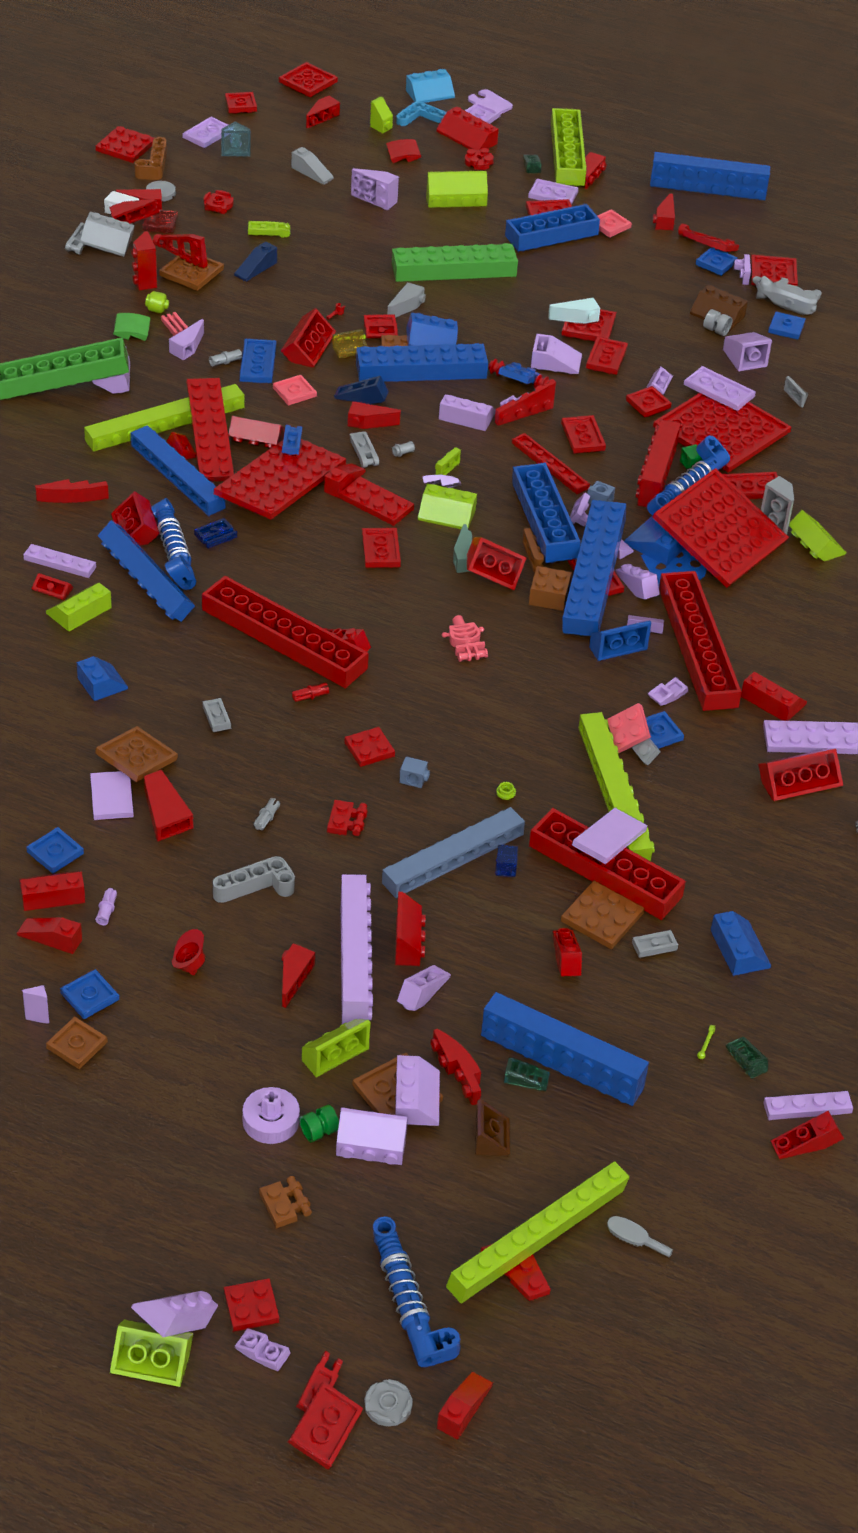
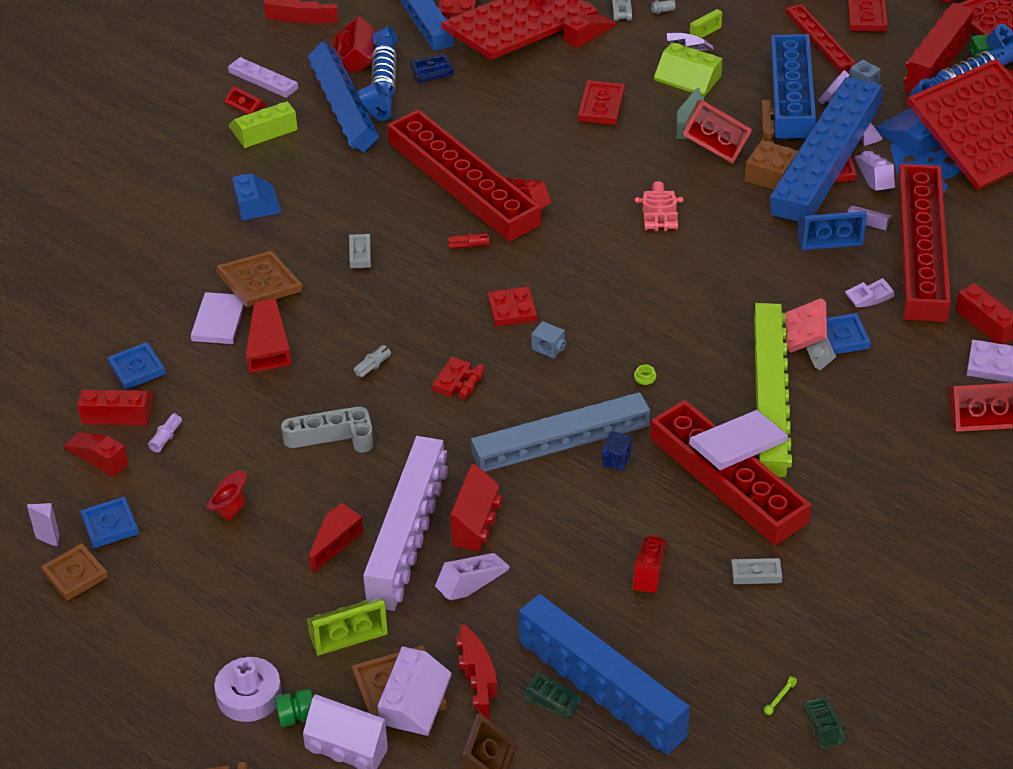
camera: 20 degrees right, 0 degrees up
(376, 501) = (615, 55): red plate -> none
(602, 914) = (707, 528): dark orange plate -> none
(738, 943) = (858, 587): blue slope -> none

